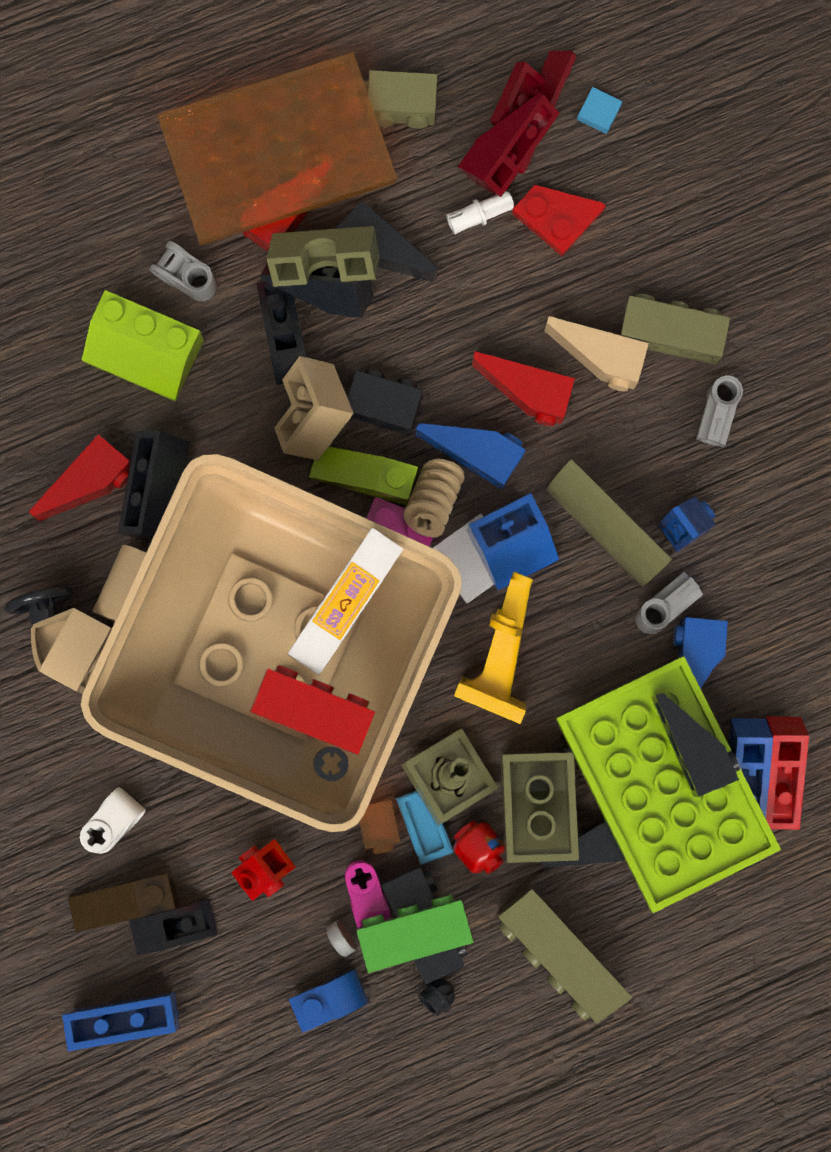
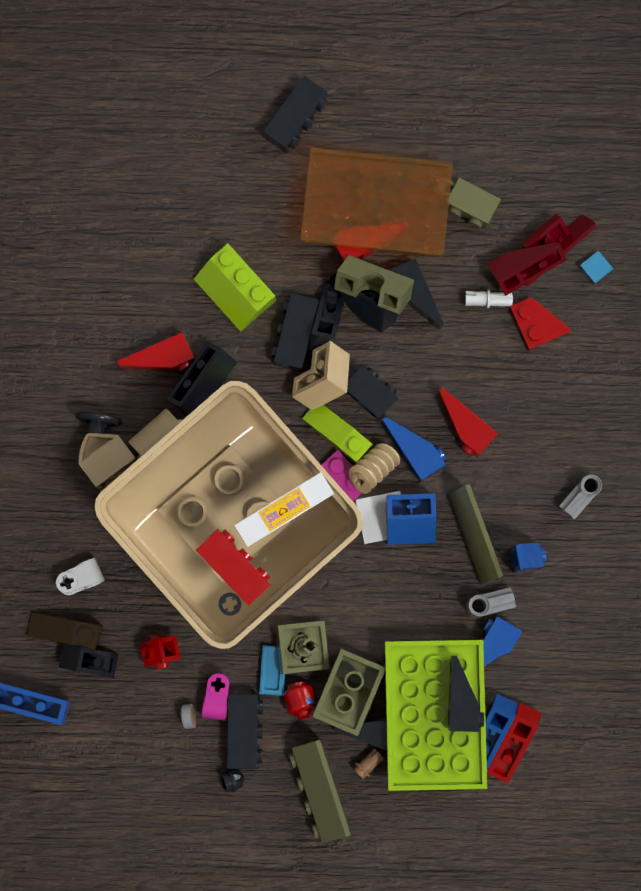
camera: 30 degrees right, 0 degrees up
(118, 85) = (296, 115): none -> black brick
(180, 269) = (280, 250): light grey piece -> none
(248, 368) = (295, 332): none -> black brick
(329, 1000) = (163, 751): blue brick -> none
(379, 827) = (244, 658): clear orange brick -> none
(414, 933) = (234, 733): bright green brick -> none
(494, 685) = (355, 604): yellow piece -> none
(605, 354) = (525, 426): tan slope -> none
(607, 889) = (368, 763): none -> medium nougat pin
(675, 328) = (577, 429): olive brick -> none

